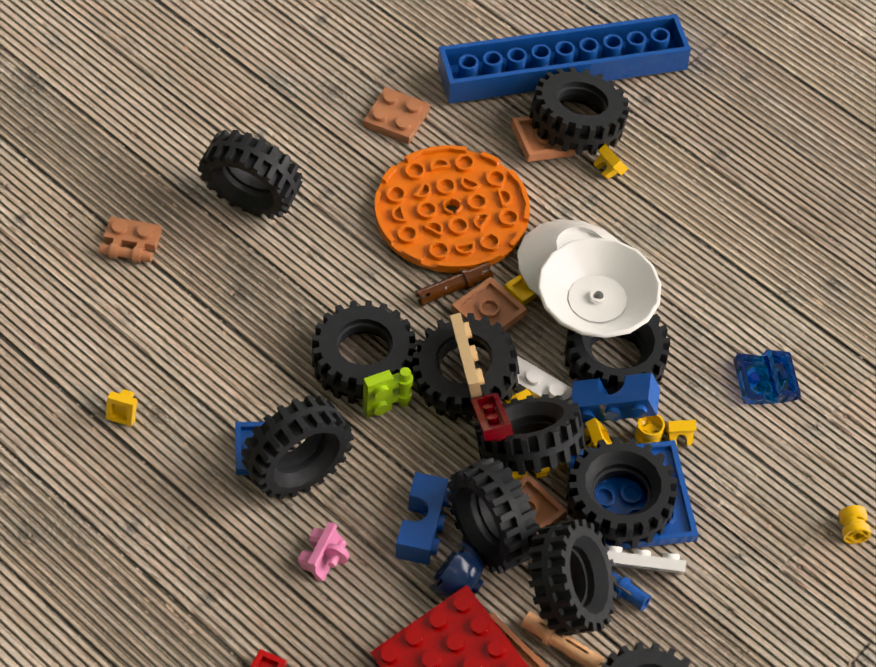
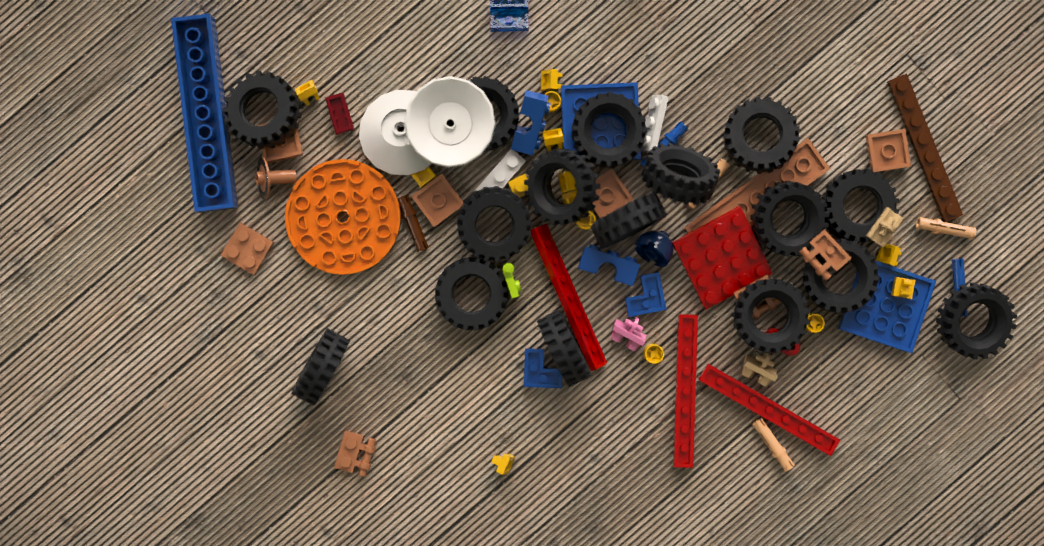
camera: 85 degrees left, 35 degrees up
(241, 635) = (685, 391): none -> red plate
(296, 585) = (653, 353): none -> yellow wheel
(368, 471) = (568, 297): none -> red plate
(380, 580) = (652, 297): none -> blue plate
(467, 354) = (499, 223): tan plate -> none
(491, 417) = (556, 213): dark red plate -> none
(492, 118) = (265, 178): none -> nougat piece
(588, 197) = (339, 113): none -> dark red plate

